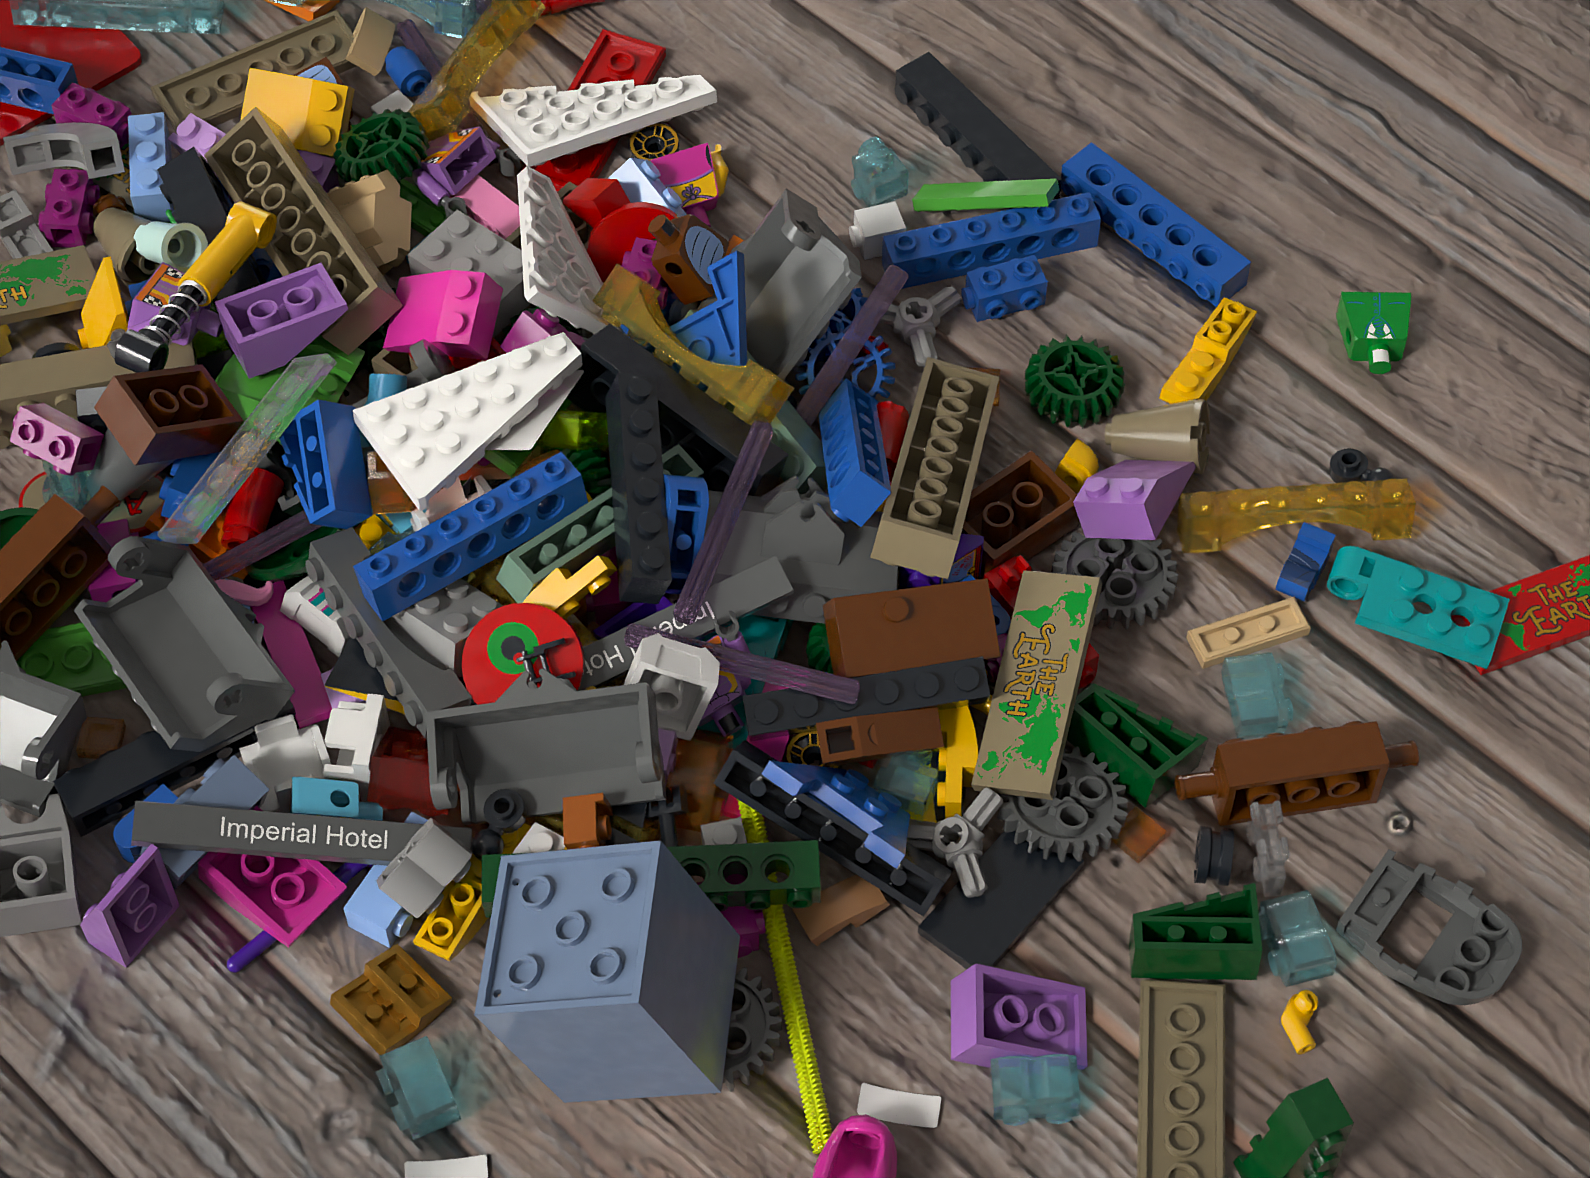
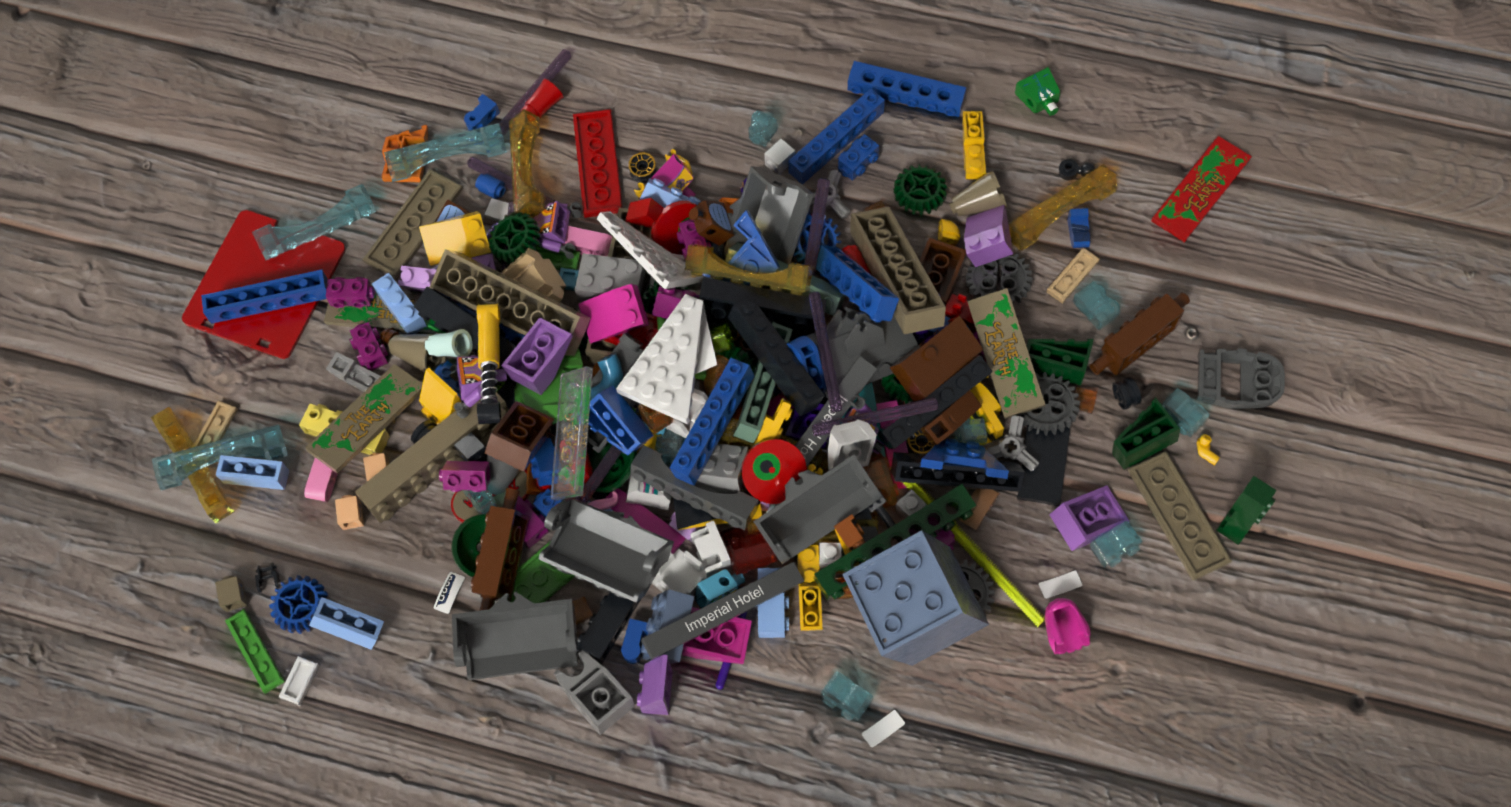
camera: 25 degrees left, 10 degrees up
(66, 144) = (349, 313): light grey arch -> none
(371, 42) = (462, 178): tan slope -> none
(390, 1000) = (804, 662): pearl gold slope -> none
(425, 868) = (788, 594): light grey brick -> none
(490, 840) = (806, 565): black plate -> none
(540, 651) = (785, 477): black piece -> none
(553, 123) = (594, 173): white wing -> none
(967, 124) = (794, 82): black brick -> none
(985, 195) = (822, 113): bright green tile -> none
(1270, 850) = (1151, 382): clear plate -> none
(1394, 587) = (1130, 231): teal hinge -> none

